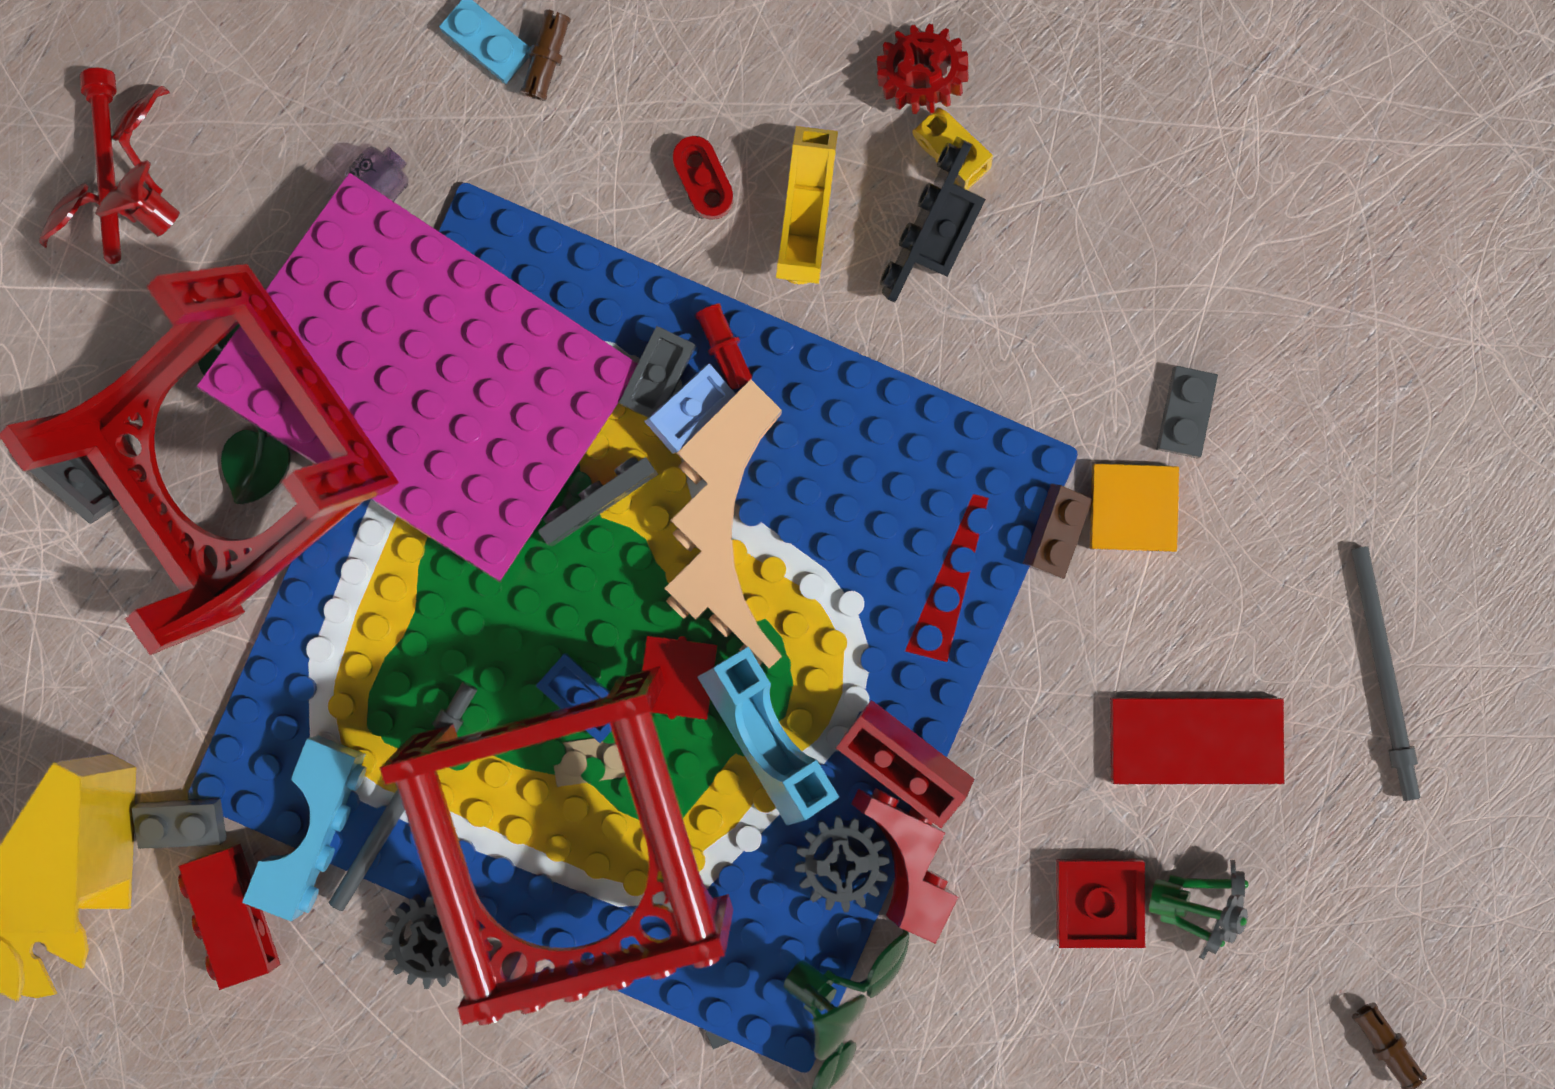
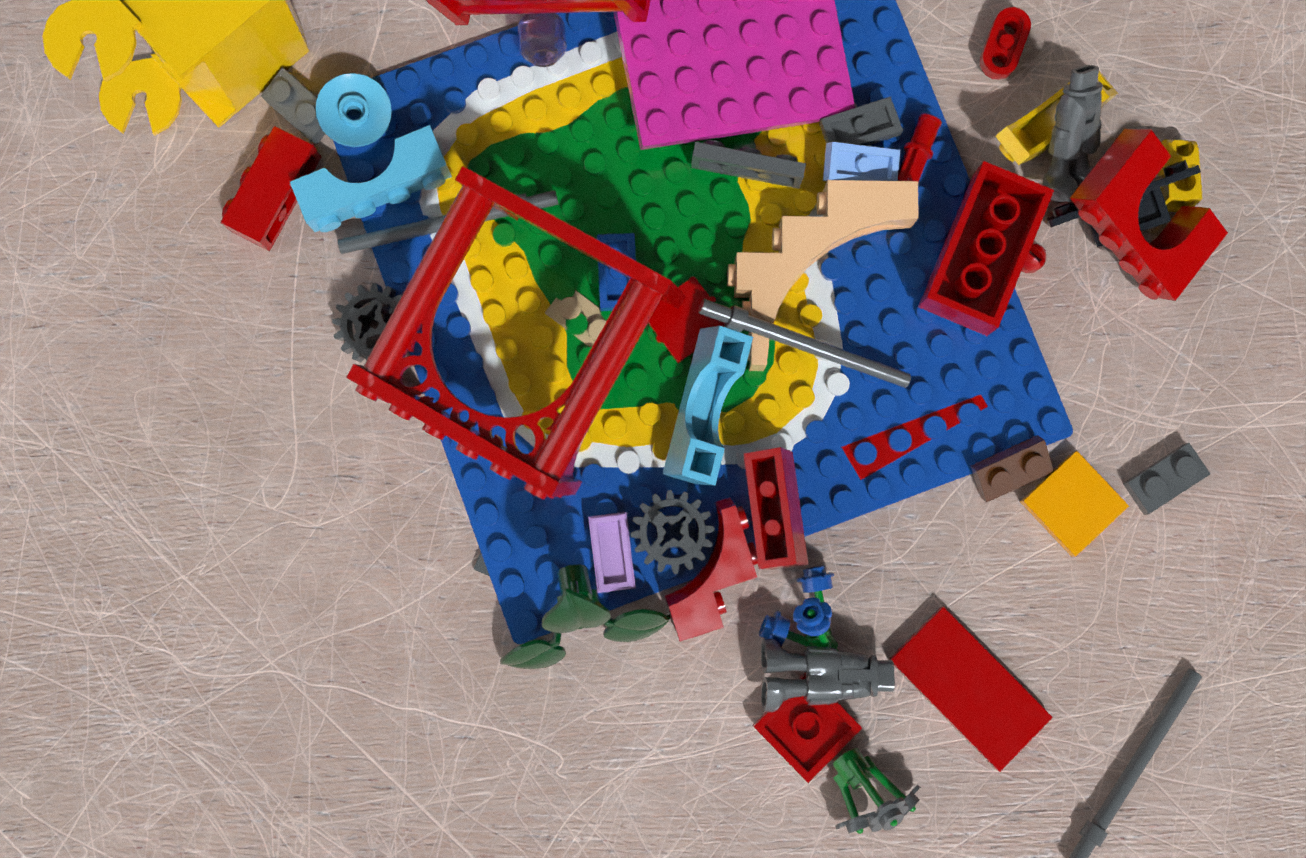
camera: 40 degrees right, 5 degrees down
(207, 780) = (349, 93): none -> medium azure dish
(323, 569) = (542, 38): none -> clear purple head
(723, 645) = (738, 319): none -> dark grey bar
(810, 926) = (611, 552): none -> lavender tile
(843, 214) = (1075, 133): none -> dark grey piece
(860, 377) = (986, 248): none -> red brick
(901, 347) = (1032, 264): none -> red hinge
(922, 68) = (1207, 108): red gear -> none
(923, 243) = (1111, 203): none -> red arch
(1020, 825) = (811, 617): none -> blue plant
(1078, 850) = (829, 675): none -> dark grey piece

